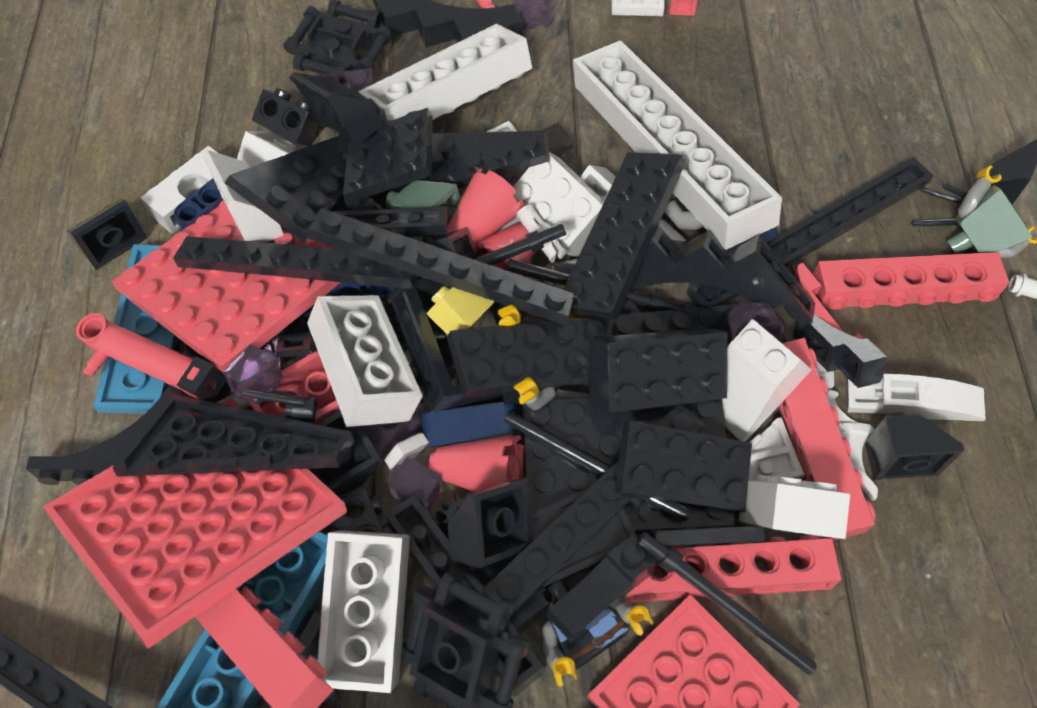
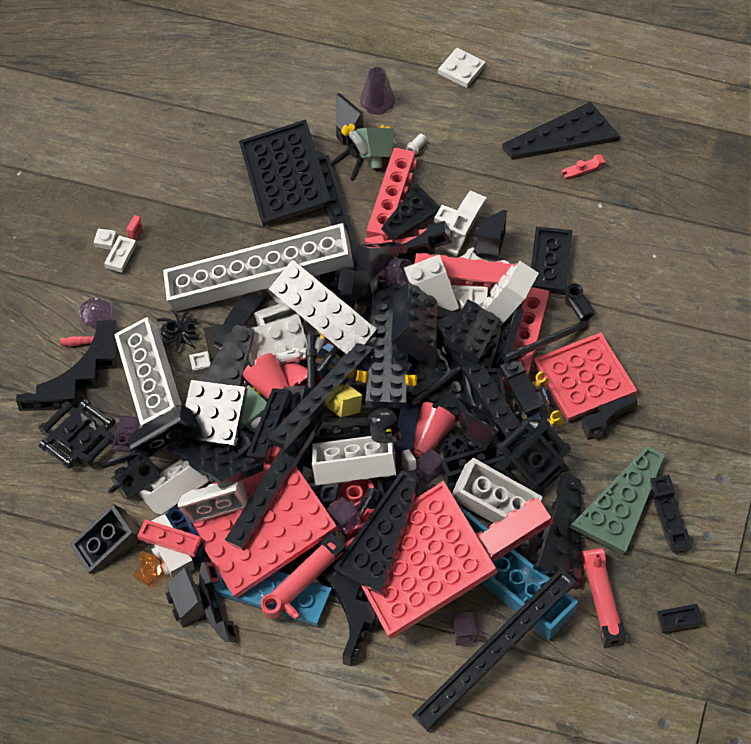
camera: 70 degrees left, 5 degrees down
(95, 266) = (207, 579): none -> black slope
(110, 636) = (464, 628): none -> clear purple brick
(150, 172) = (148, 568): none -> clear orange bracket
(188, 180) = (169, 538): none -> coral tile
(191, 121) = (106, 539): none -> black slope
(423, 366) = (381, 420): none -> black helmet
(544, 97) = (177, 330): none -> black animal
(588, 151) = (240, 314): none -> black slope
(845, 645) = (578, 303): none -> black piece
(869, 133) = (285, 173): none -> black plate
(894, 317) = (410, 213): none -> black wing
(914, 365) = (445, 214): none -> white plate
(917, 566) = (551, 258): none -> black plate

